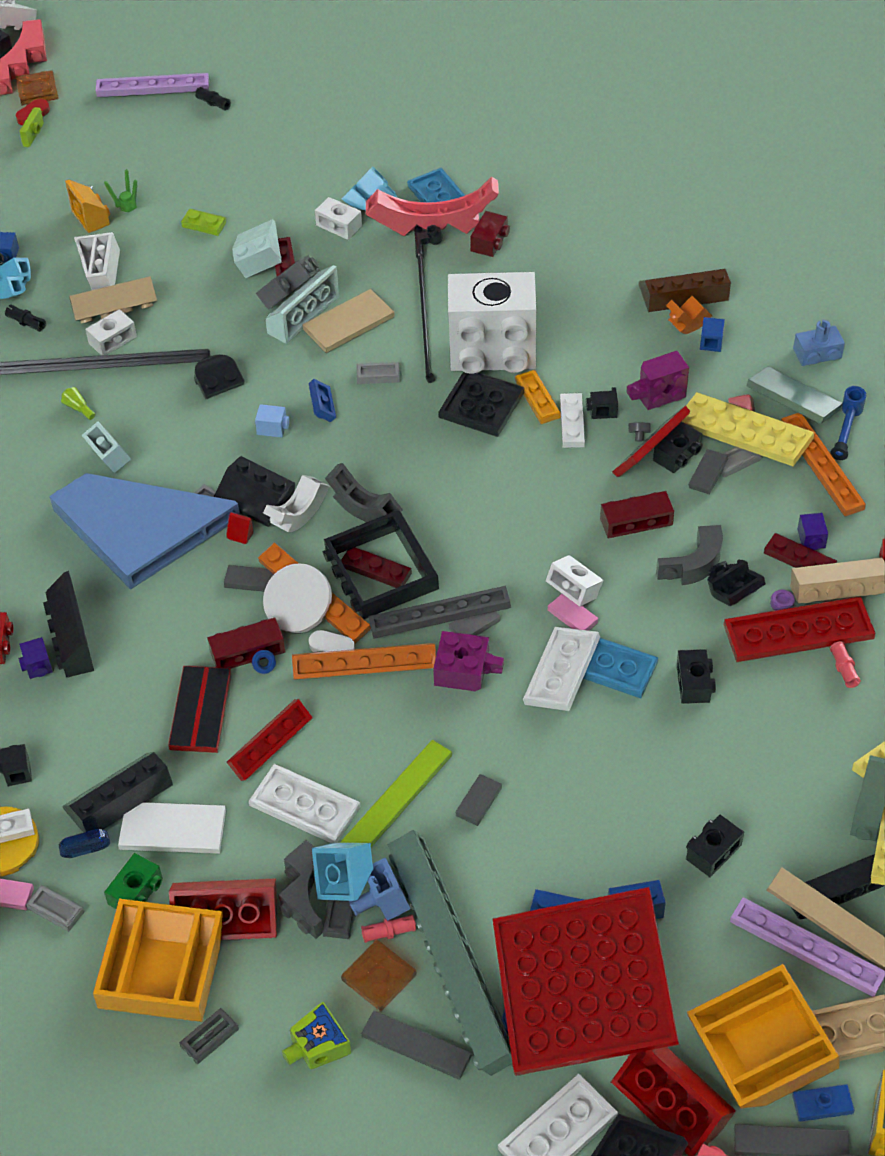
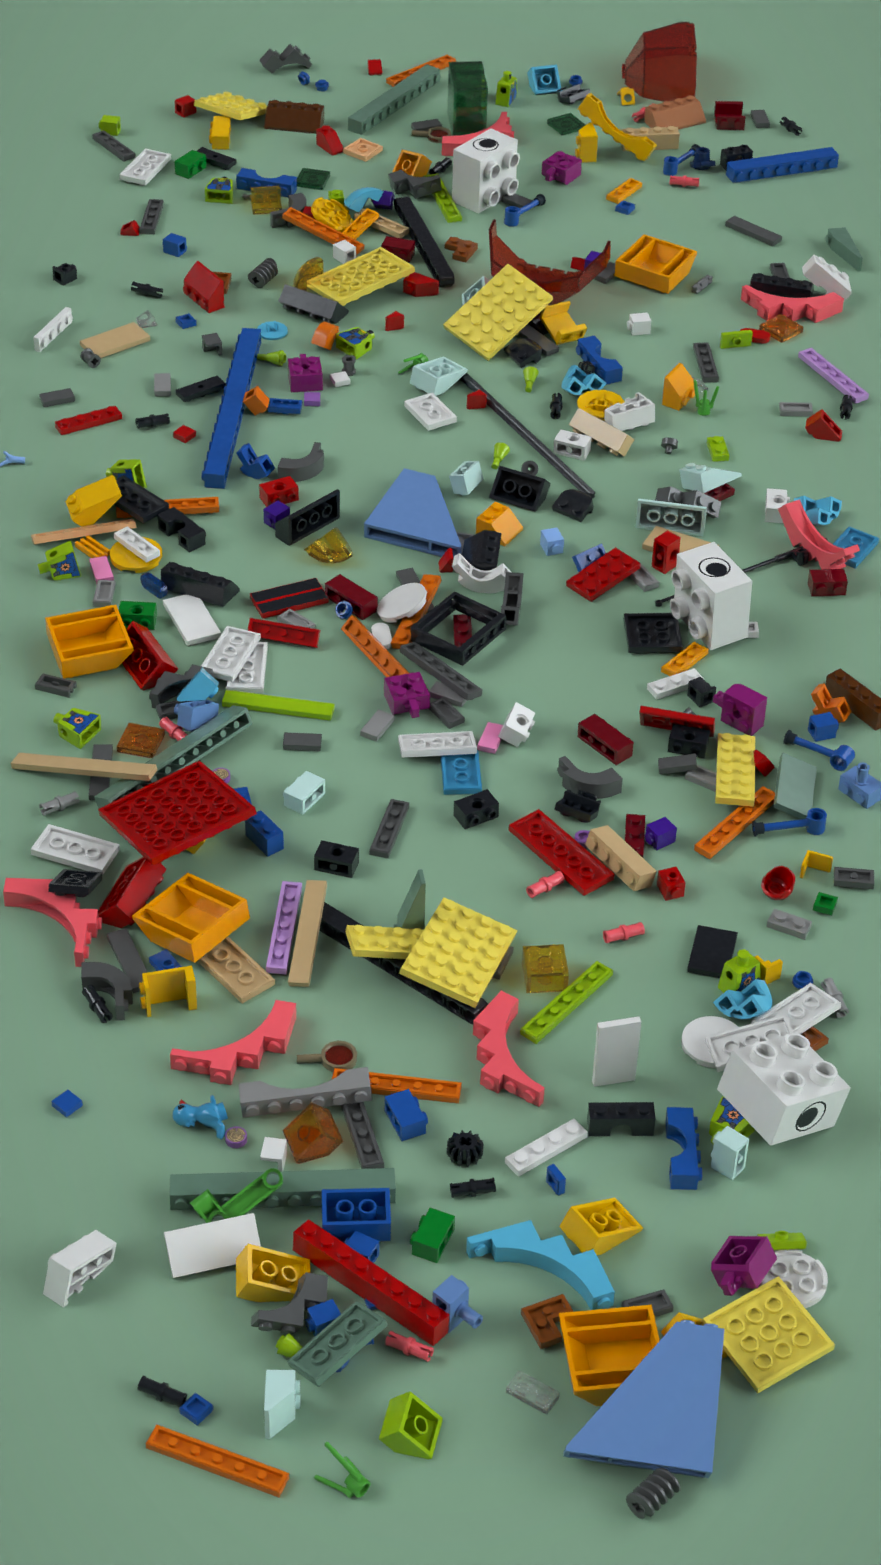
camera: 60 degrees right, 10 degrees down
(45, 167) = (705, 362): none -> dark grey tile
(56, 279) = (597, 401): none -> yellow piece
(126, 386) = (529, 464): none -> dark grey tile
(141, 629) = (330, 548): none -> clear yellow brick
(157, 410) = (519, 489): none -> black slope
(172, 255) = (669, 444): none -> dark grey tile
(183, 136) = (795, 409): none -> light grey tile
(205, 455) = (501, 520): none -> light orange slope
(235, 129) = (823, 427): none -> red slope
(249, 719) = (293, 618): none -> light grey tile
(276, 810) = (231, 652): none -> white tile
(356, 402) = (603, 574): none -> red plate
(366, 332) = (665, 551): none -> red brick
(414, 1060) = (84, 766): none -> tan tile
(457, 1117) = (59, 803): none -> light grey pin
(491, 712) = (377, 725): none -> light grey tile
(496, 908) = (223, 773): none -> tile
(507, 637) = (446, 713): none -> dark grey tile
(579, 832) = (304, 792): none -> light aqua brick
(678, 773) = (389, 828): none -> dark grey tile
(765, 339) = (839, 758): none -> blue piece

